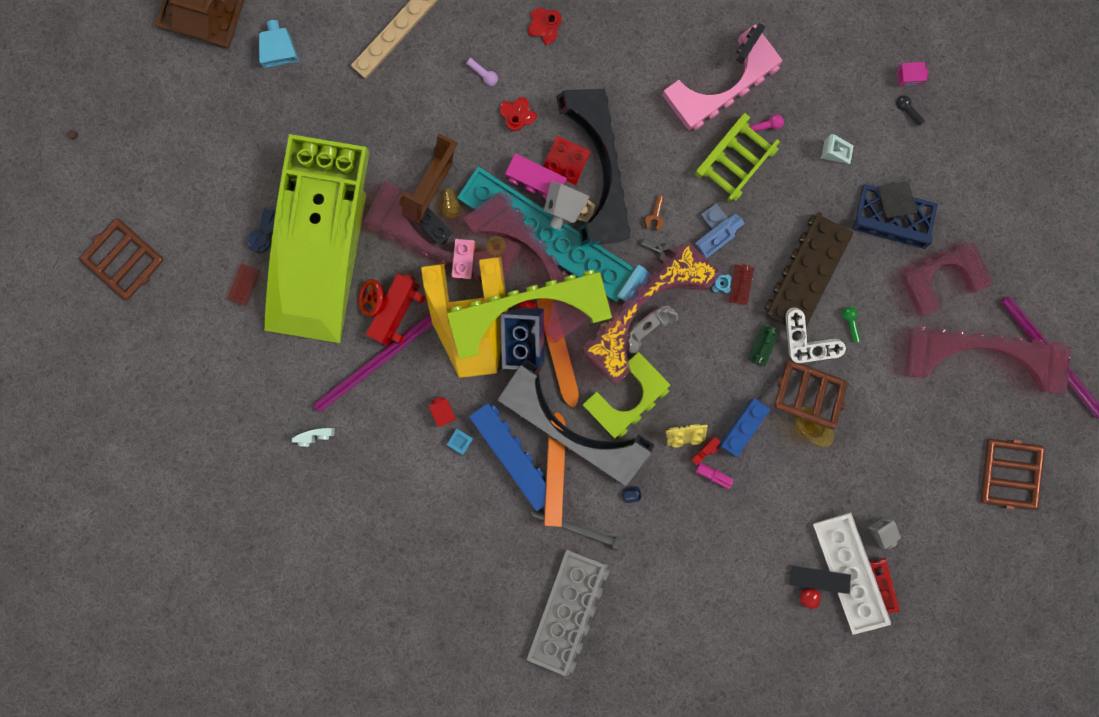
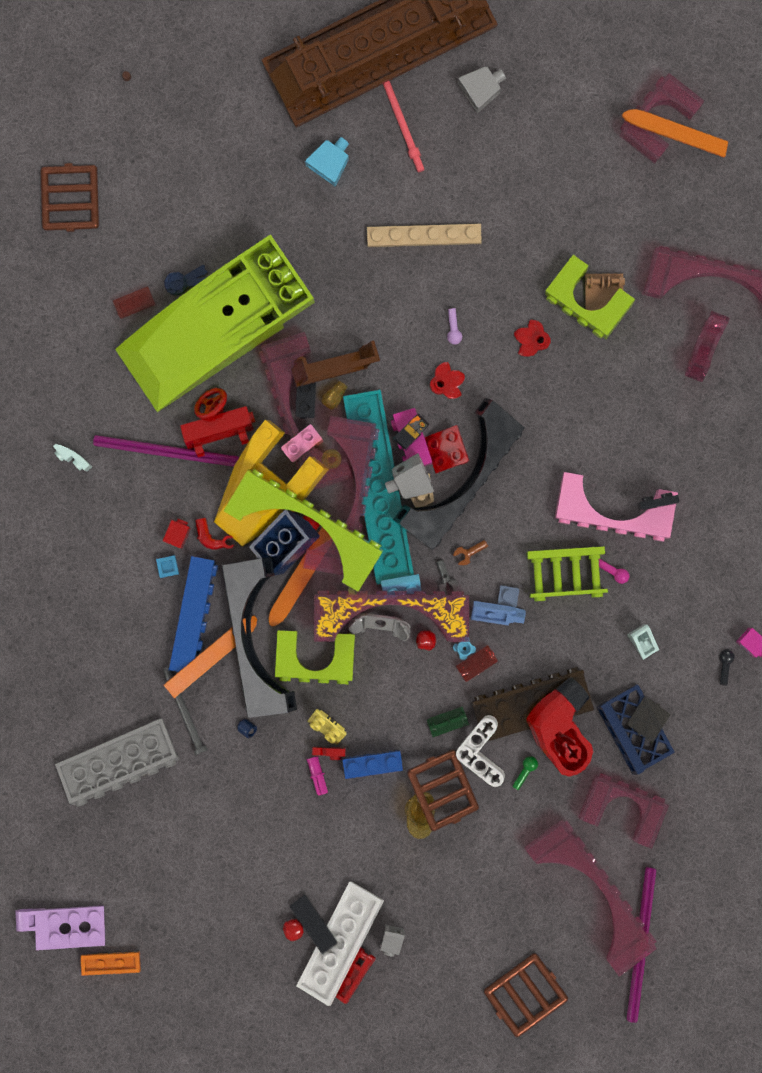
camera: 50 degrees right, 0 degrees up
(466, 394) = (206, 538): none -> red piece
(531, 171) = (411, 432): none -> black leg
(690, 304) = (426, 640): none -> red piece
(846, 271) = (557, 732): none -> red piece

